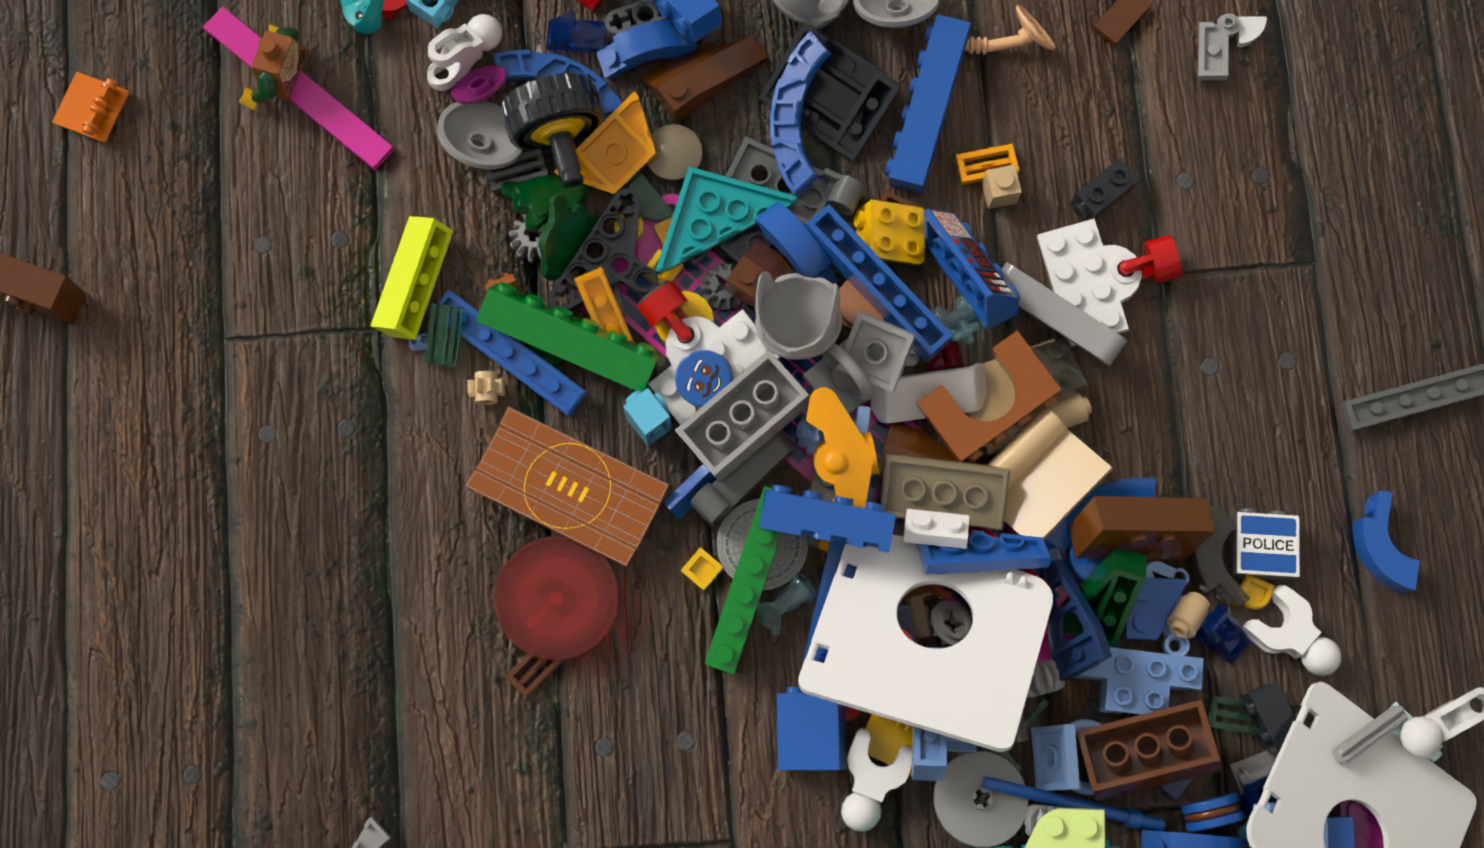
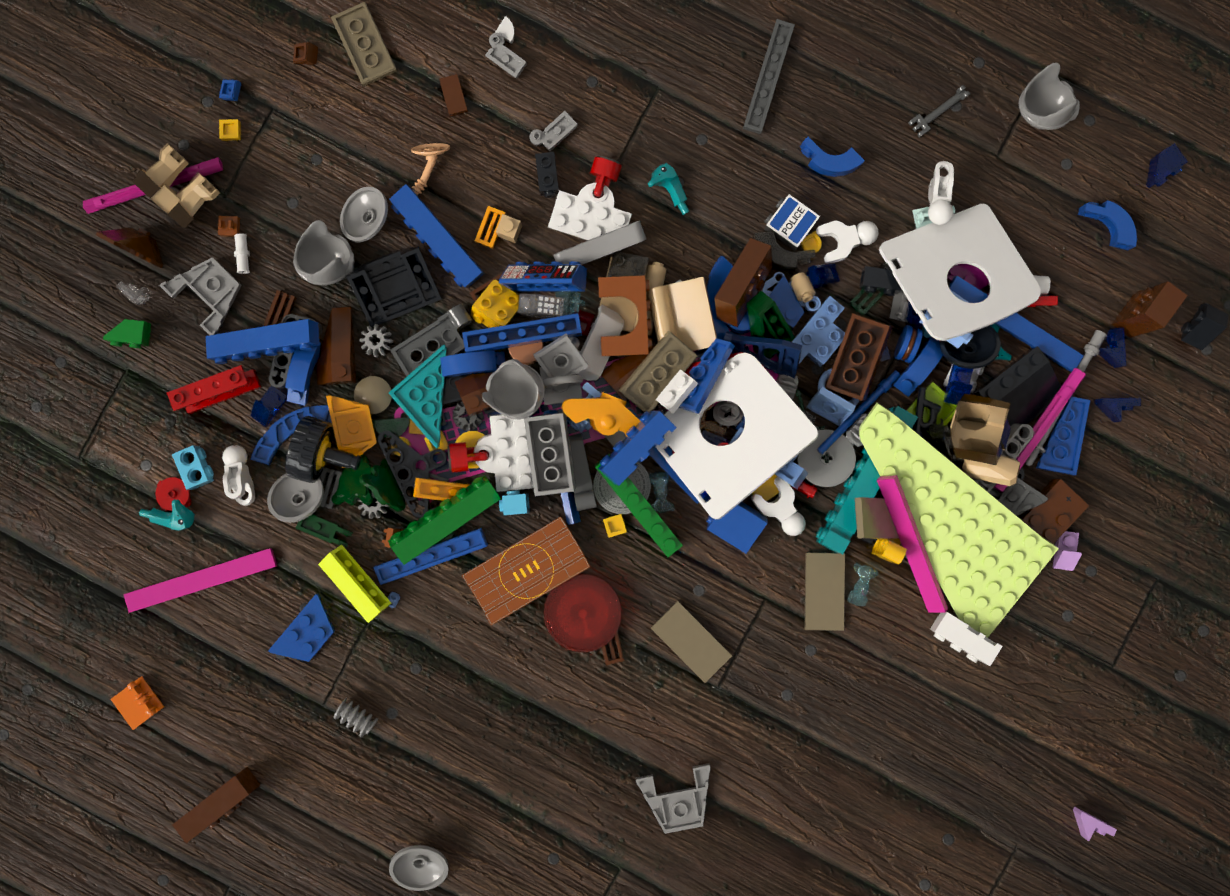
camera: 50 degrees left, 10 degrees up
(76, 595) = (418, 868): none -> light grey dish
(231, 387) = (355, 718): none -> light grey piece
(275, 66) = (180, 586): torso -> none
(308, 258) = (306, 633): none -> blue wing
(432, 338) = (393, 590): clear green tile -> none
(458, 195) = (323, 529): none -> dark green hinge
(479, 84) = (264, 478): magenta dish -> none
(486, 388) = (442, 580): tan gear -> none
(608, 774) = (691, 642): none -> dark tan tile
(702, 376) = (514, 461): blue head -> none
(746, 102) = (372, 347): none -> light grey gear
(787, 110) = (391, 318): tile -> none
(920, 797) = (807, 489): none -> red pin
(929, 284) = (540, 305): none -> clear slope
(1164, 167) = (554, 132): none -> light grey hinge
(1207, 345) = (667, 177): none -> teal animal
(1370, 734) = (923, 237): light grey axle -> none

